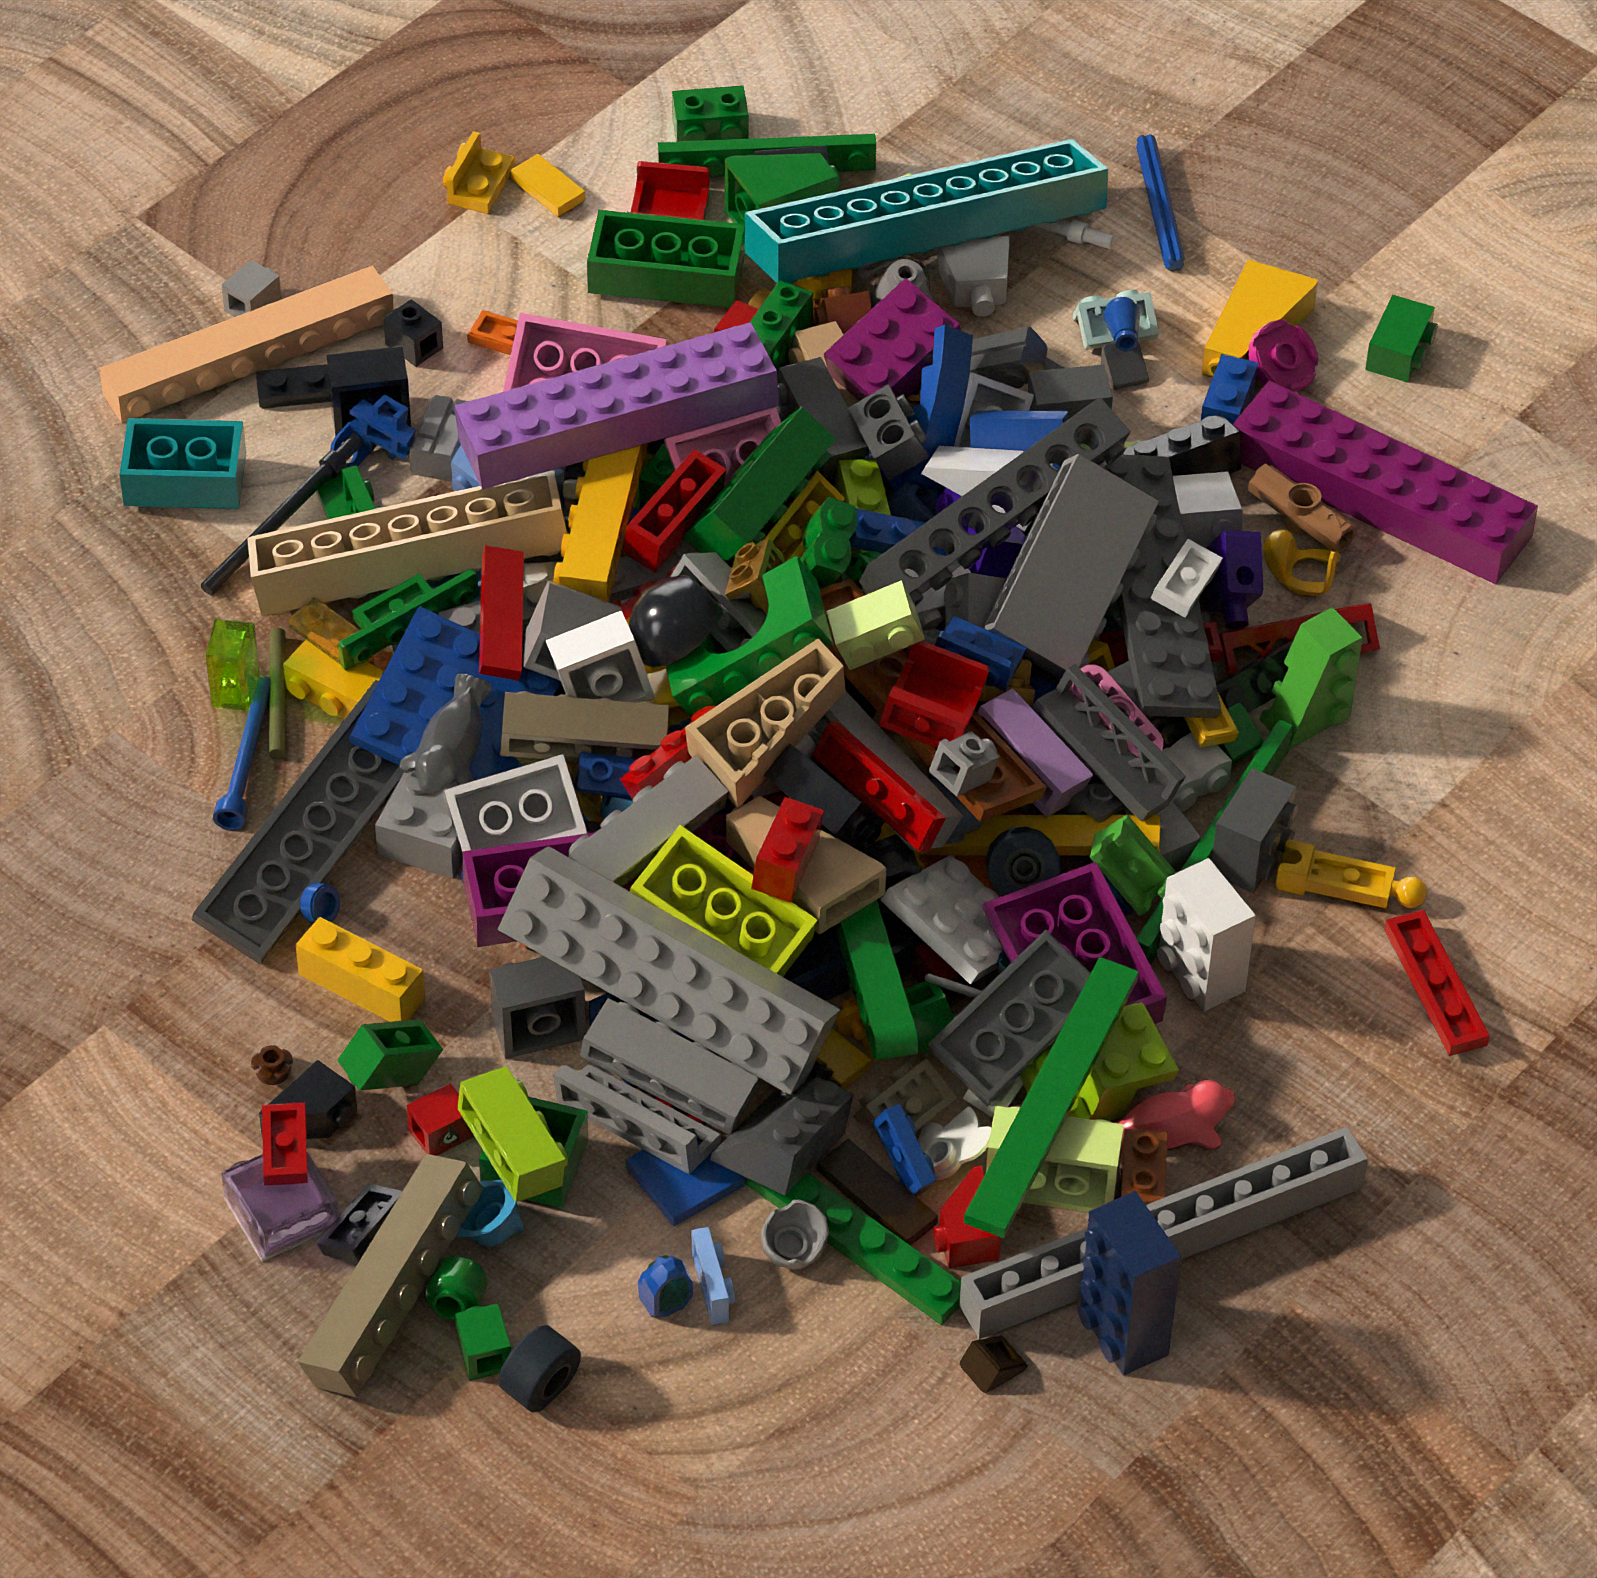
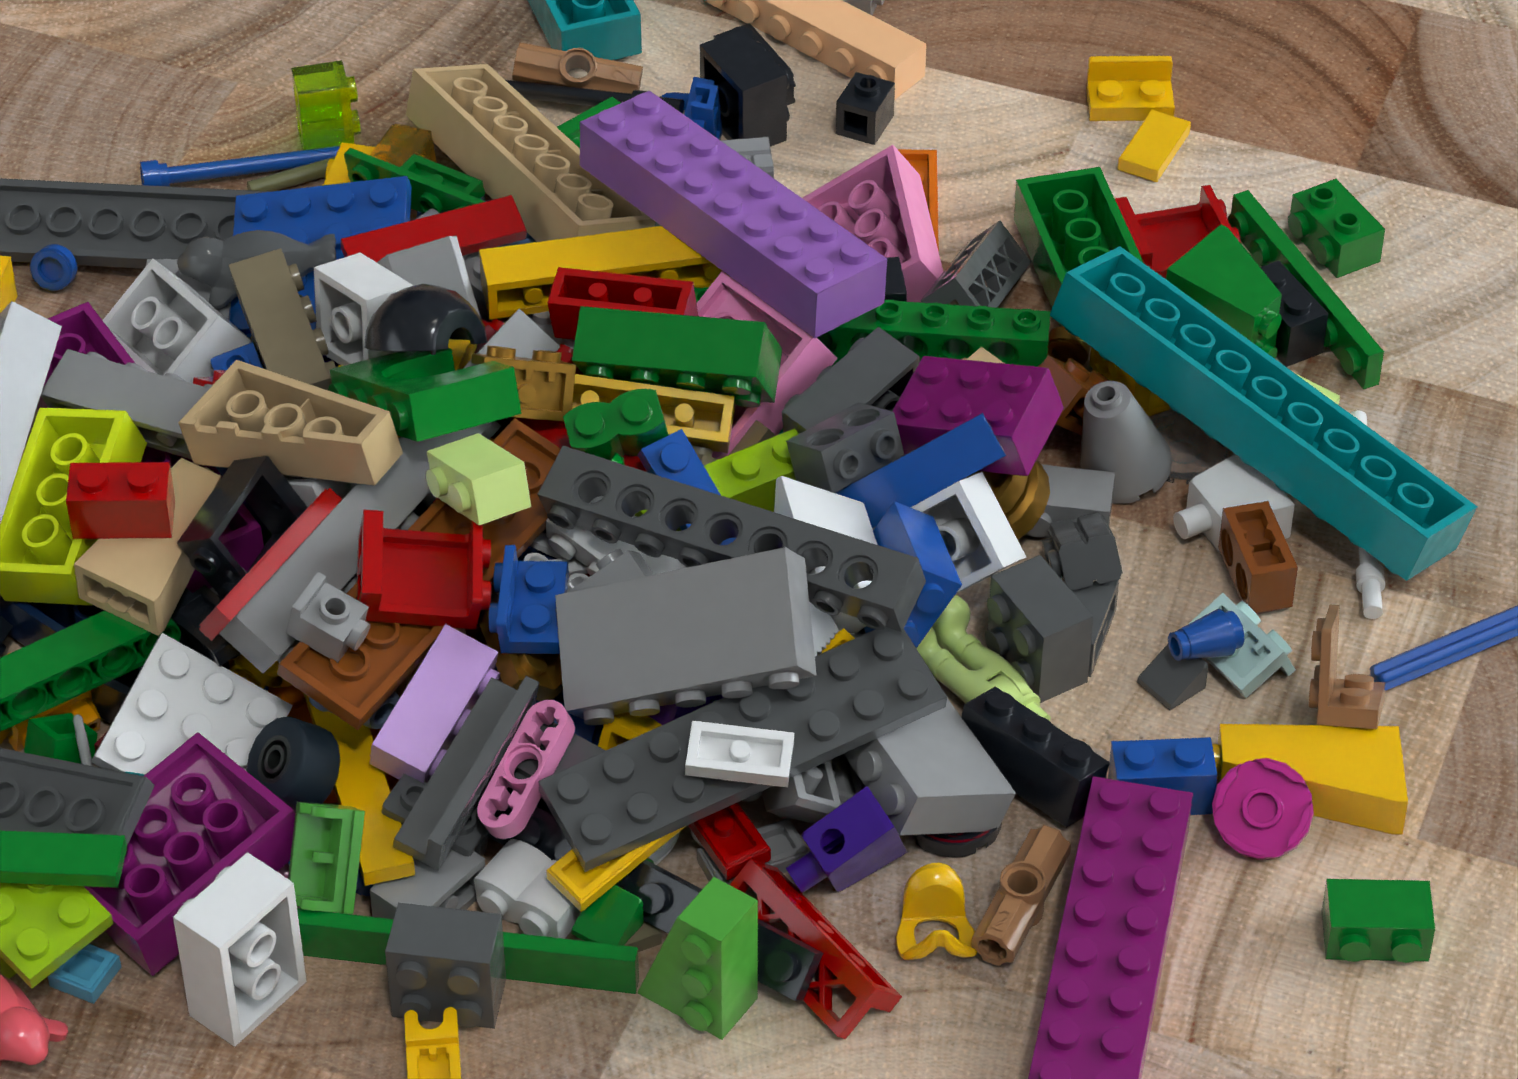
camera: 70 degrees right, 5 degrees down
(266, 493) = (552, 66): none -> medium nougat piece
(660, 320) = (978, 264): none -> dark grey fence
(1045, 275) = (1258, 557): none -> dark orange brick
(1190, 271) = (1341, 702): none -> medium nougat bracket

